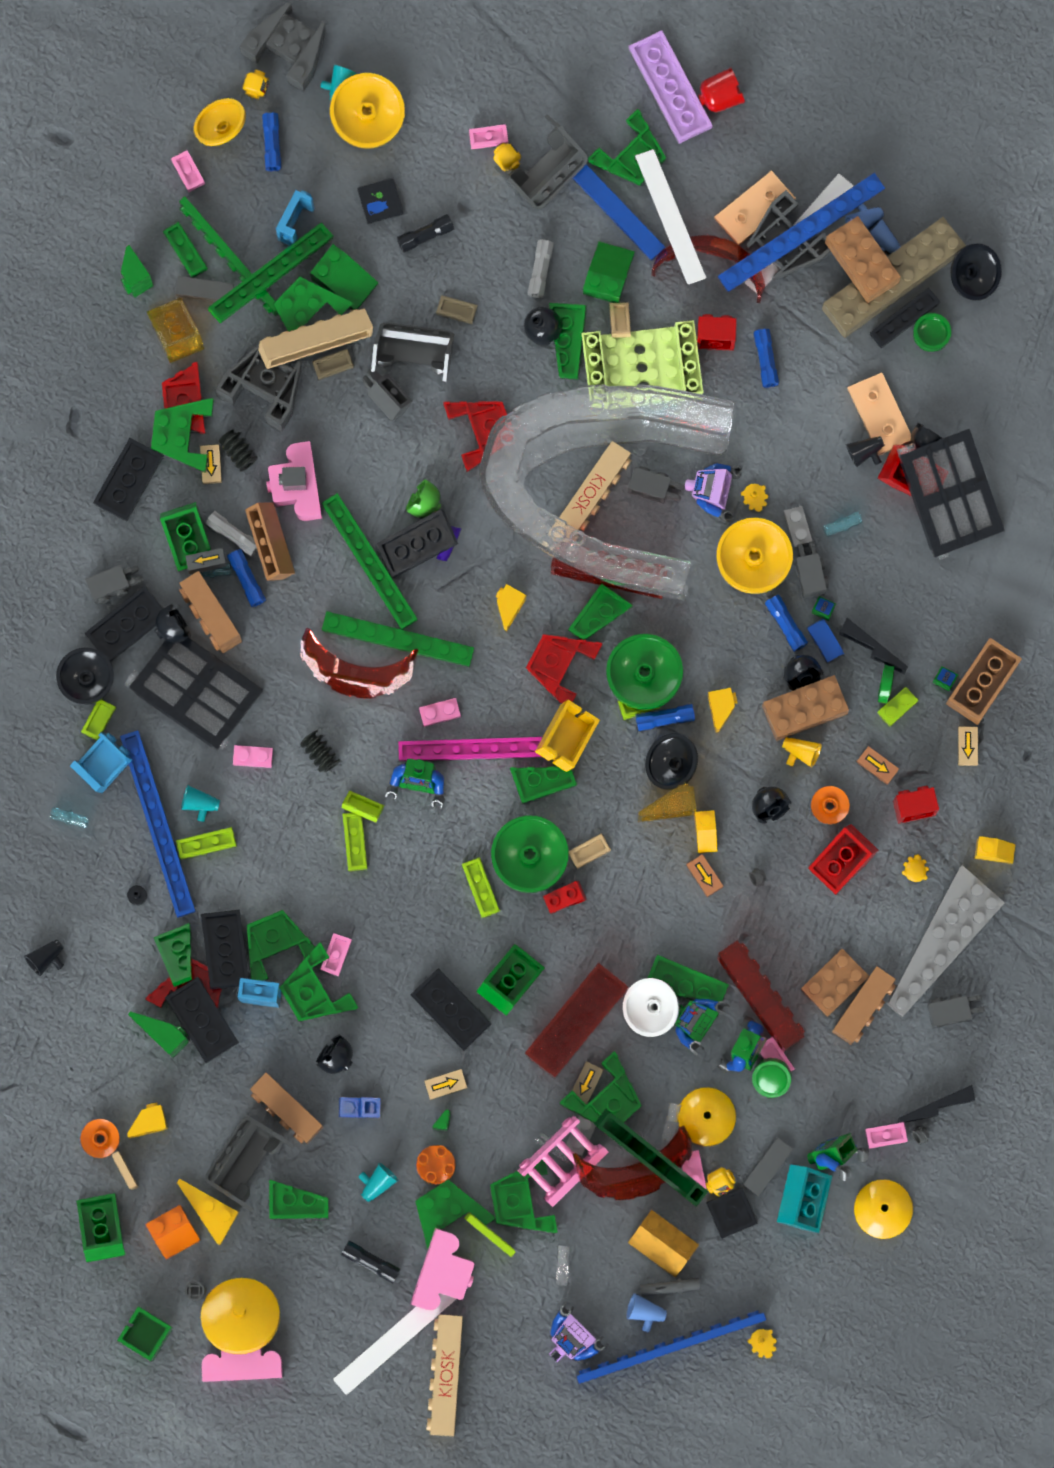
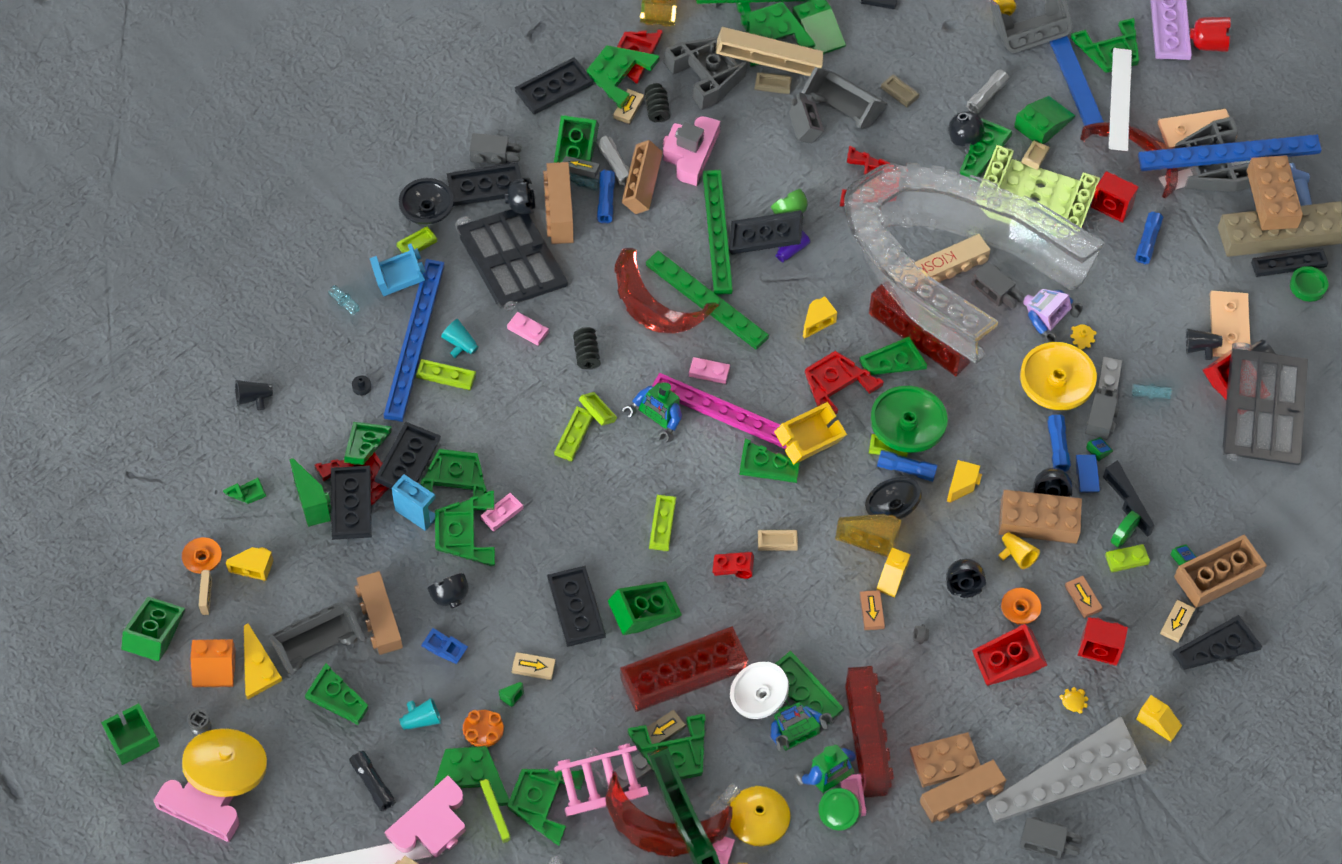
camera: 25 degrees right, 20 degrees down
(100, 1054) = (246, 493): none -> green slope
(413, 238) = (892, 26): black axle -> none
(529, 854) = (722, 512): green dish -> none
(1013, 750) = (1220, 643): none -> black wing

